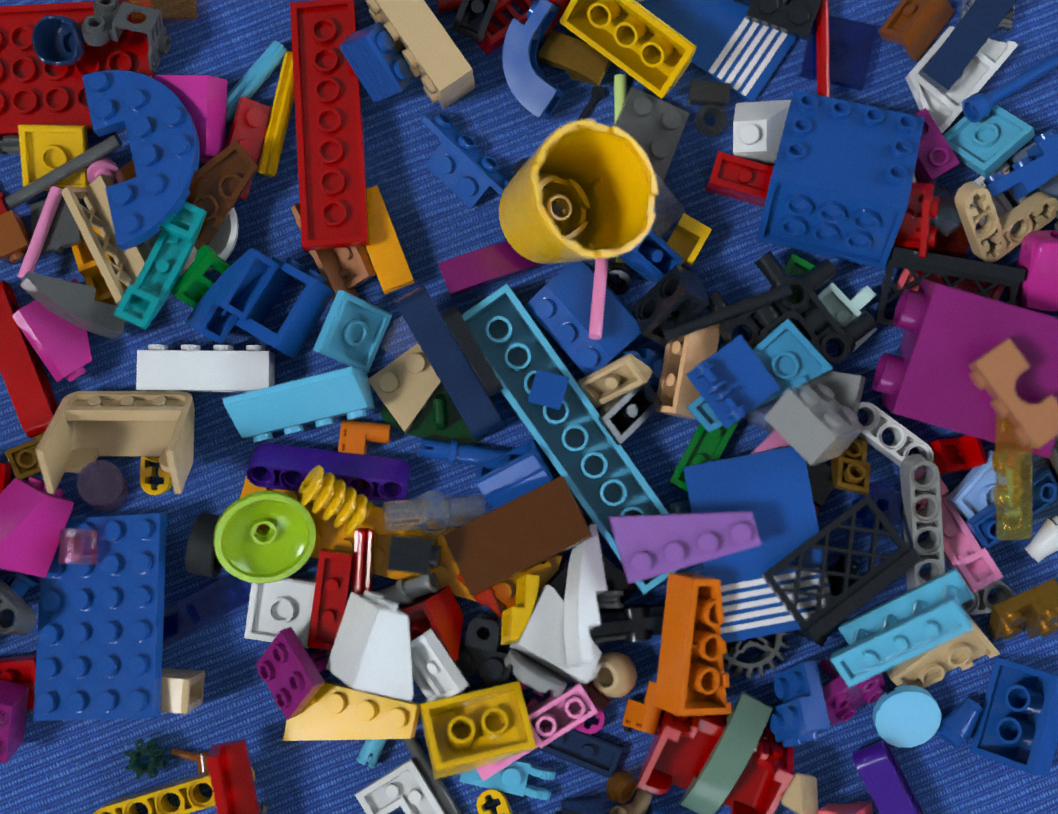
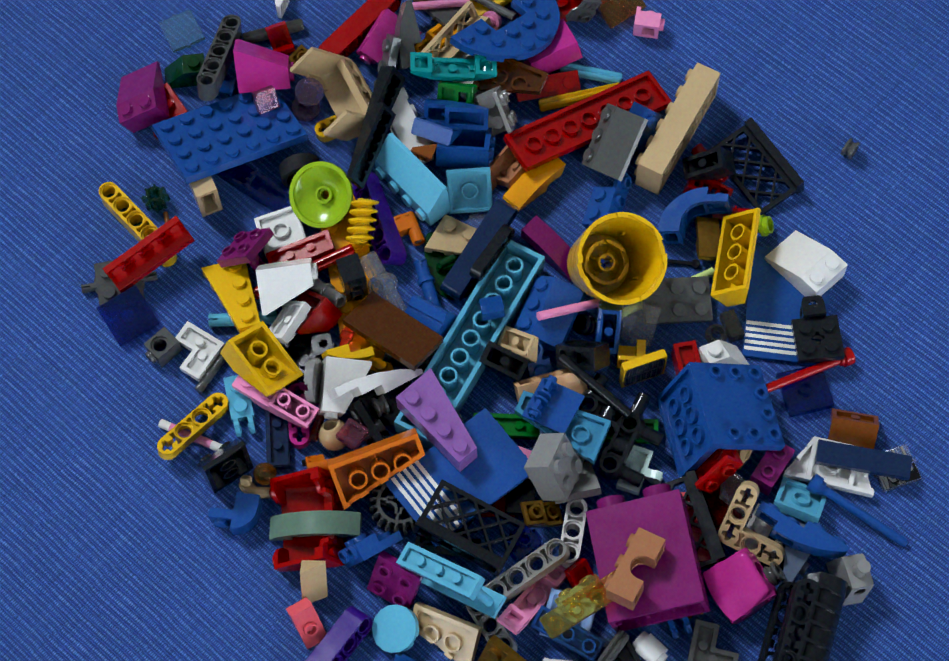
camera: 65 degrees right, 20 degrees down
(103, 348) = (390, 50): none -> dark grey hinge
(198, 413) = (375, 124): none -> black slope
(243, 231) = (500, 116): none -> light grey bracket
(246, 336) = (435, 130): none -> blue slope
(273, 367) = (424, 152): none -> dark orange slope
(387, 104) = (614, 141): none -> dark grey slope
(635, 656) = (352, 434): none -> clear pink tile
(721, 237) = (643, 368): none -> tile

